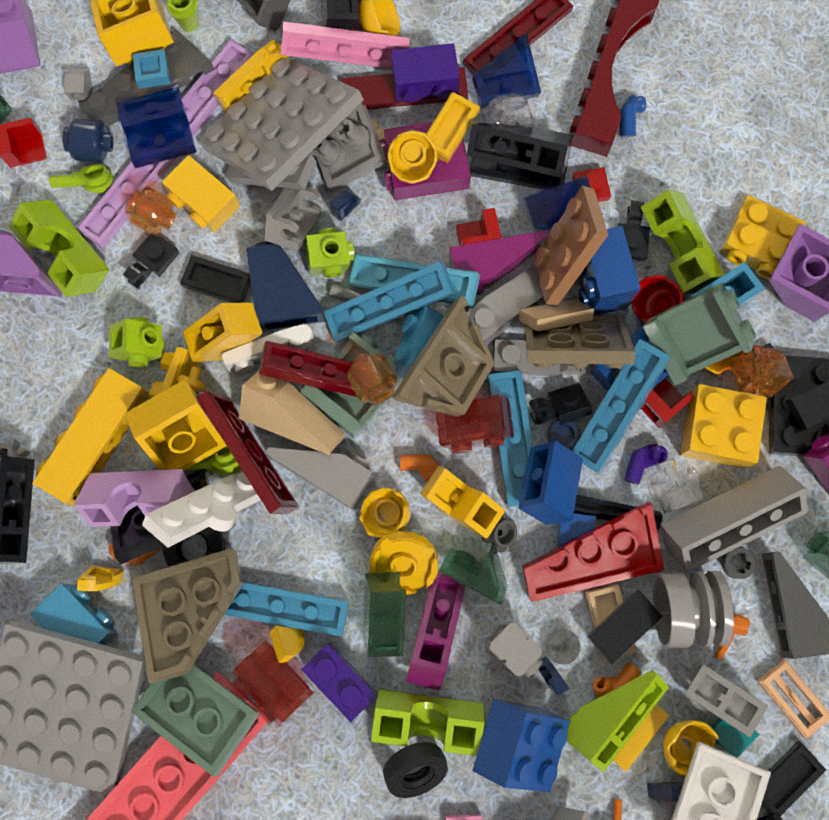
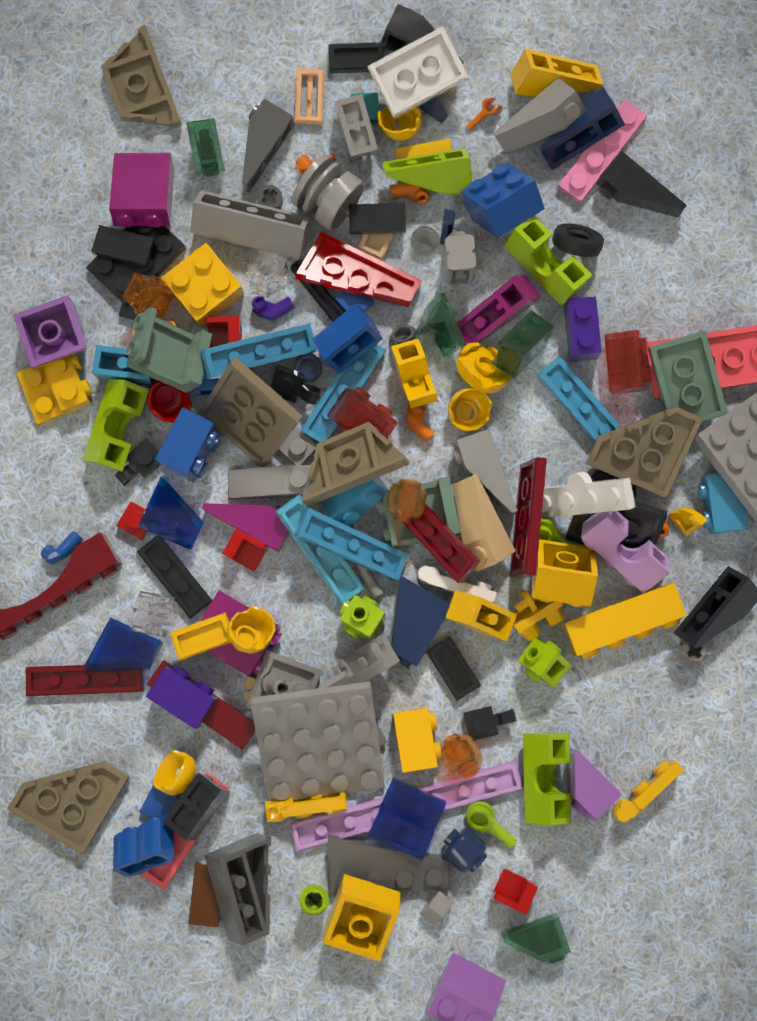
camera: 140 degrees left, 5 degrees up
(151, 69) = (377, 863): dark azure plate -> none
(287, 642) = (597, 378): yellow tile -> none
(340, 45) = (229, 775): bright pink plate -> none
(344, 204) = (318, 648): dark blue tile -> none
(521, 147) = (165, 578): black slope -> none
(550, 317) = (246, 445): tan tile -> none
(570, 245) = (200, 476): medium nougat plate -> none

